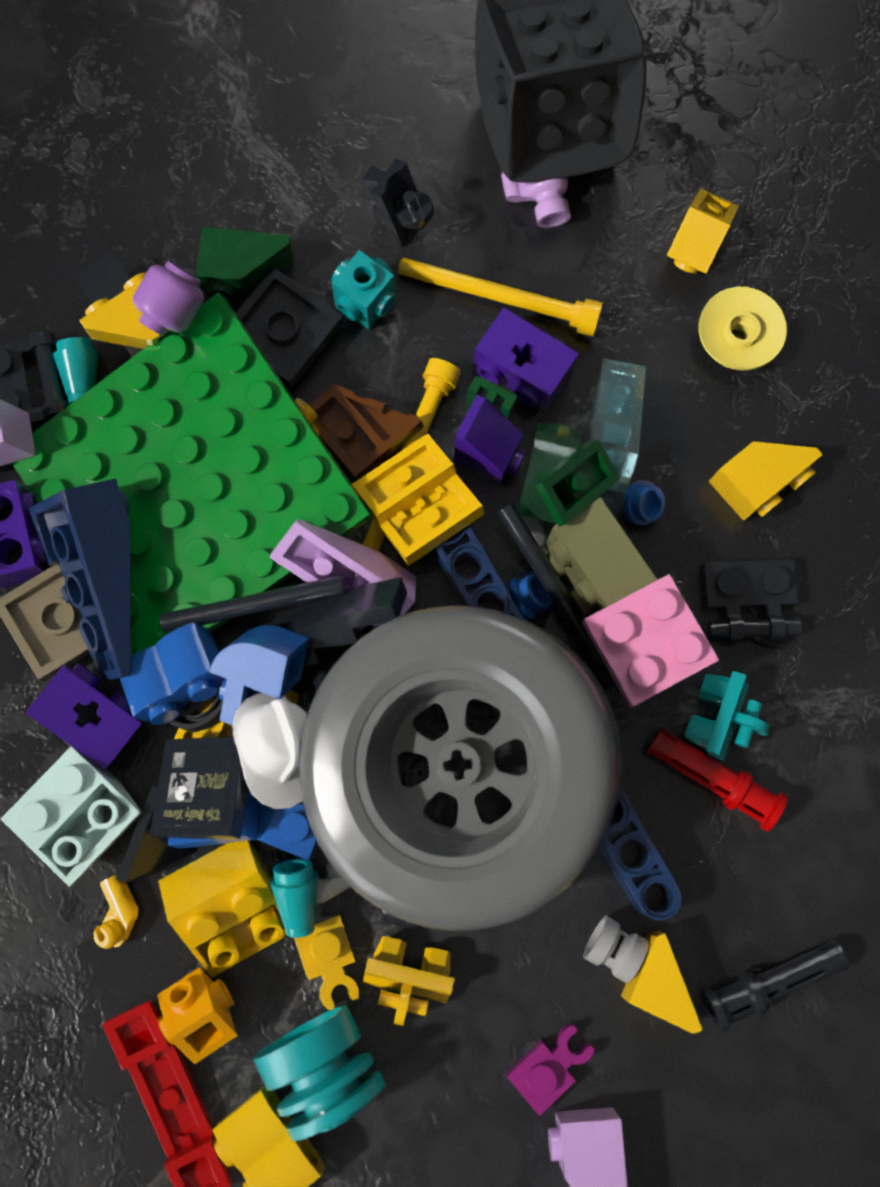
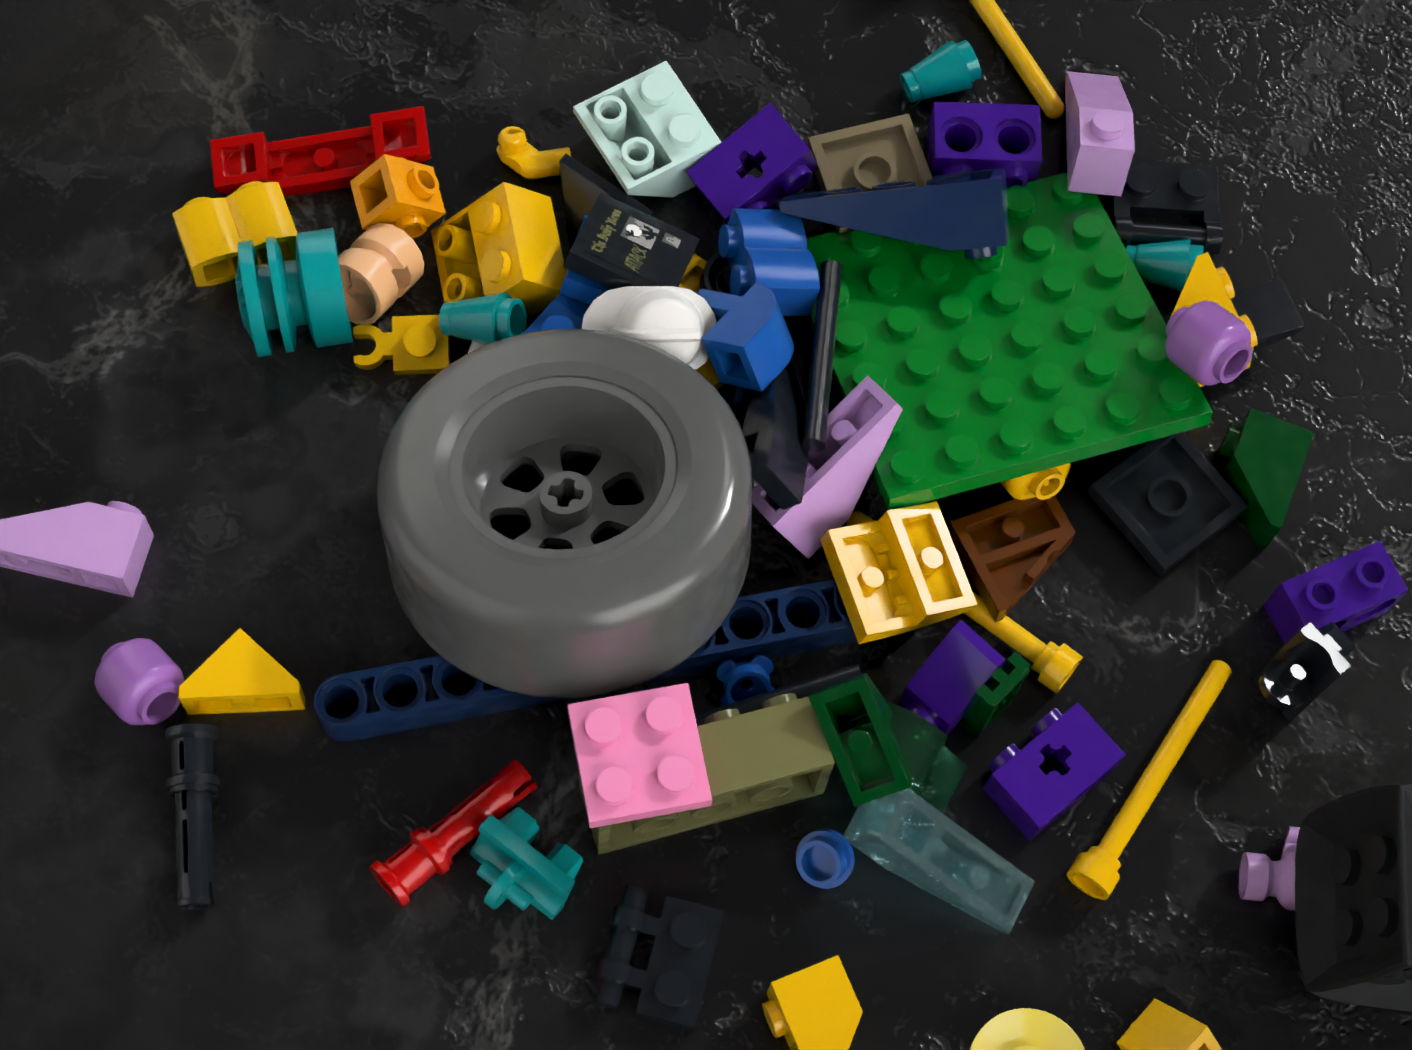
camera: 105 degrees right, 10 degrees down
(276, 1008) = (378, 271): none -> light nougat wheel
(328, 193) = (1338, 592): none -> dark purple brick
(363, 289) = (1193, 602): teal brick -> none
(429, 982) = (372, 399): yellow hips -> none
(543, 1072) = (200, 534): magenta plate -> none
(616, 949) = (290, 650): light grey wheel -> none
(690, 1070) = (139, 682): none -> medium lavender head

